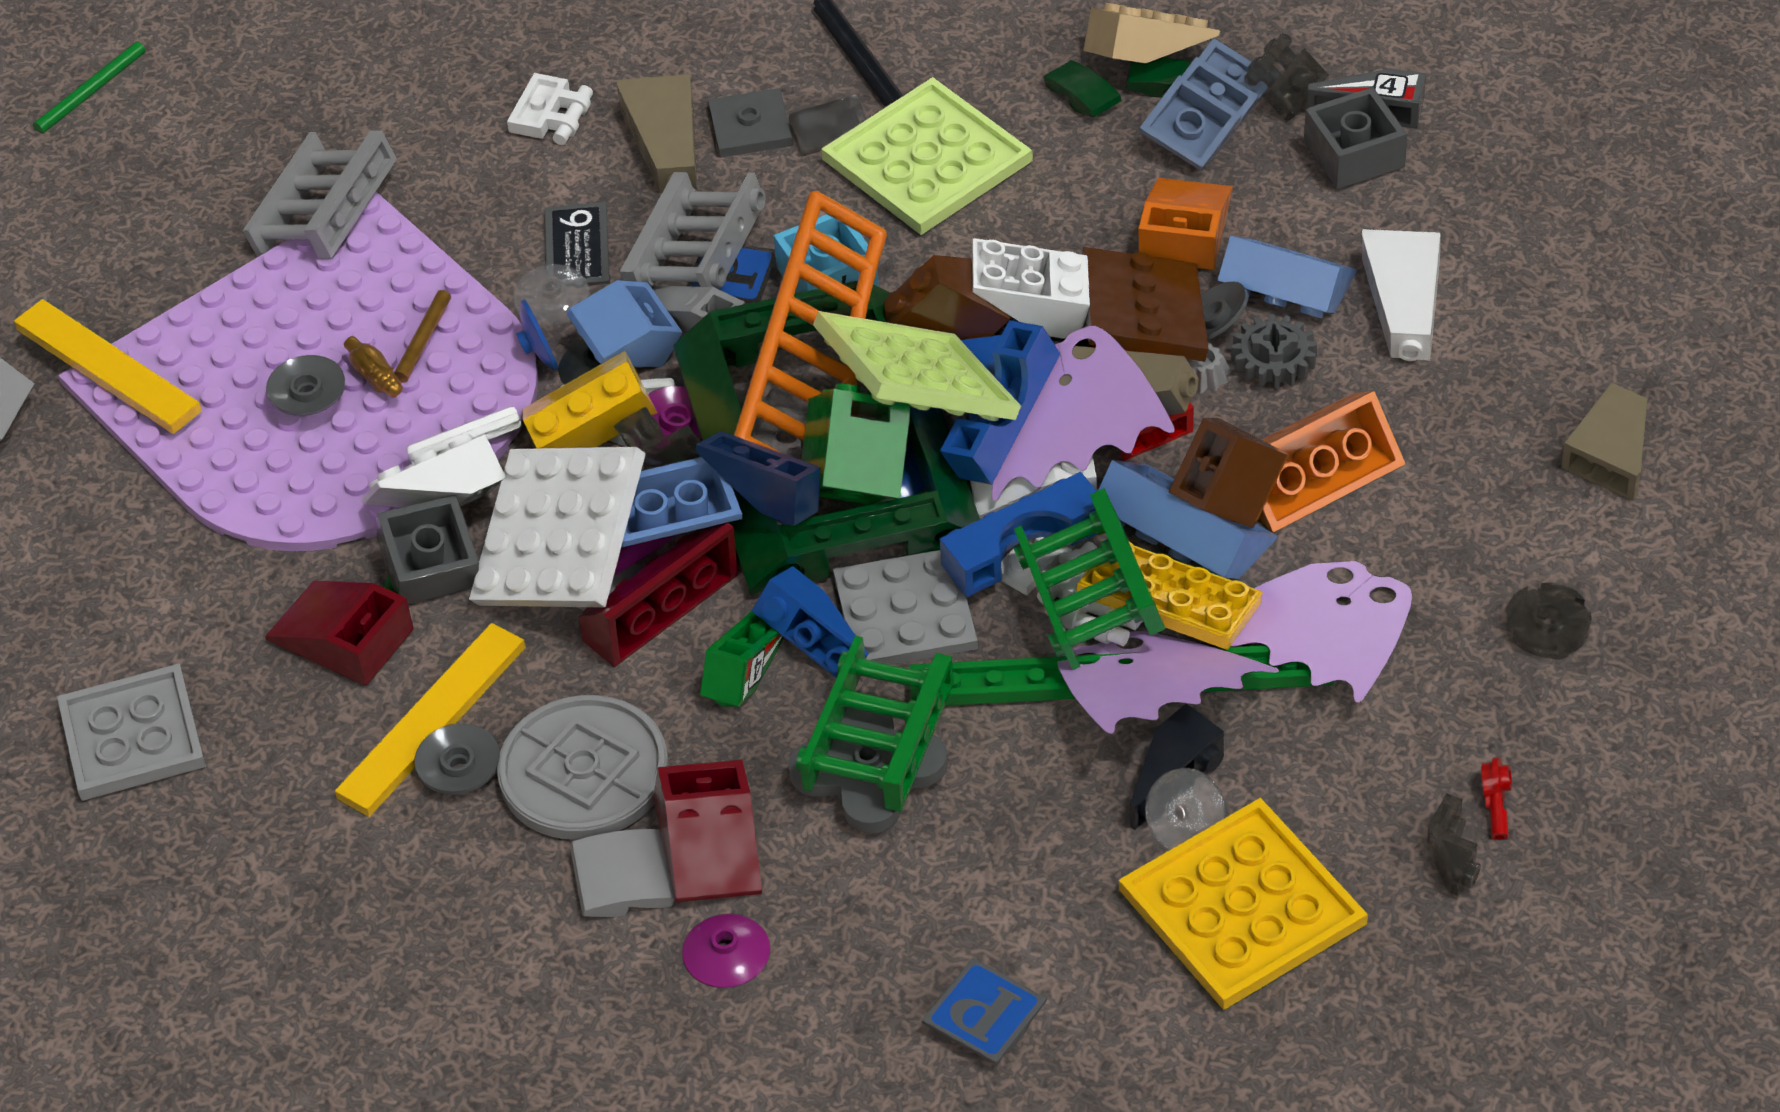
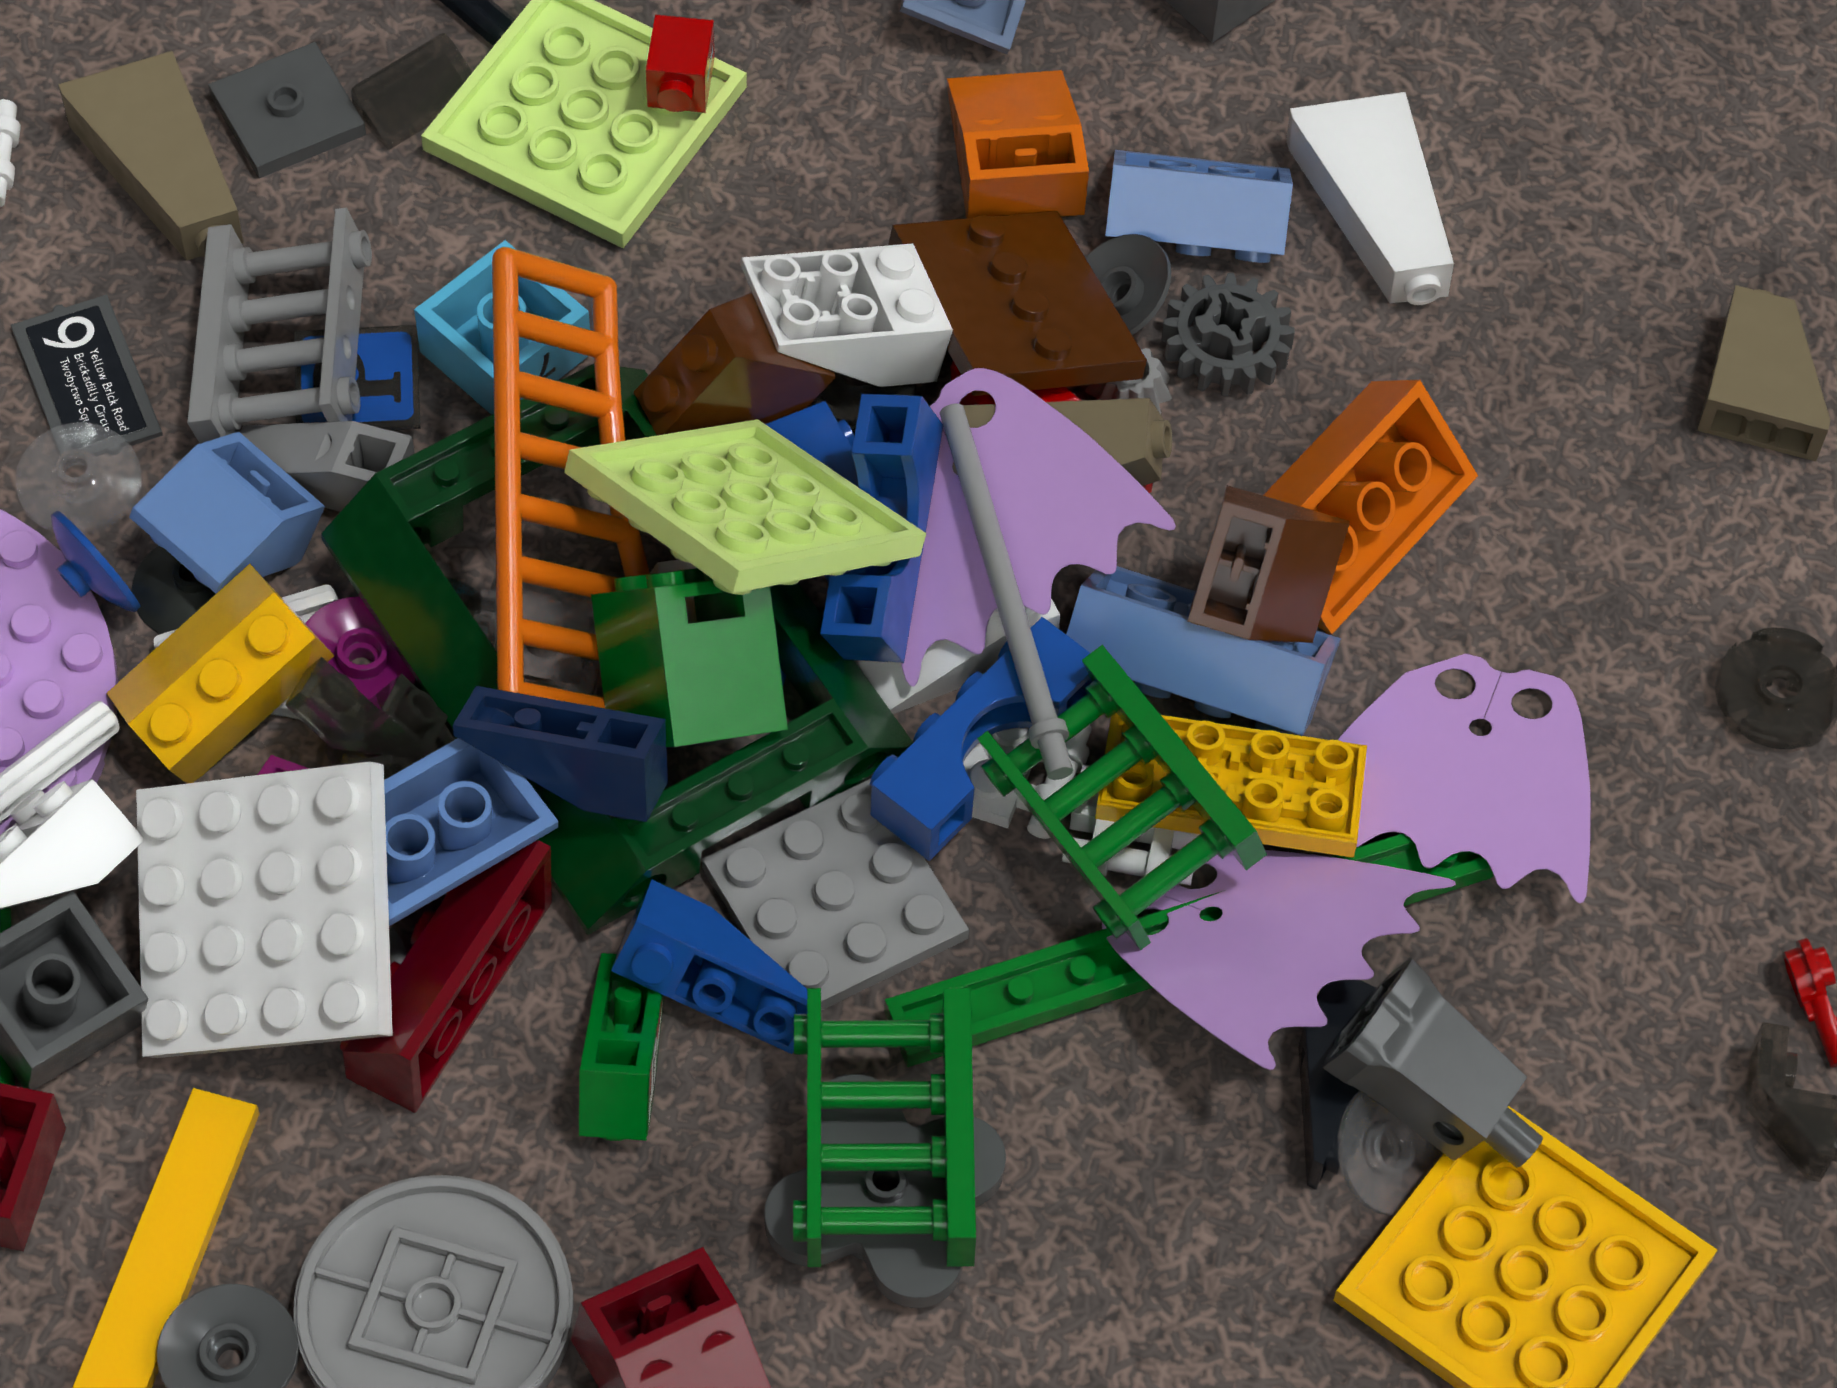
camera: 25 degrees left, 10 degrees up
(989, 134) = (680, 63): none -> red brick
(1056, 531) = (1047, 730): none -> light grey bar
(1218, 764) = (1432, 1069): none -> dark grey piece

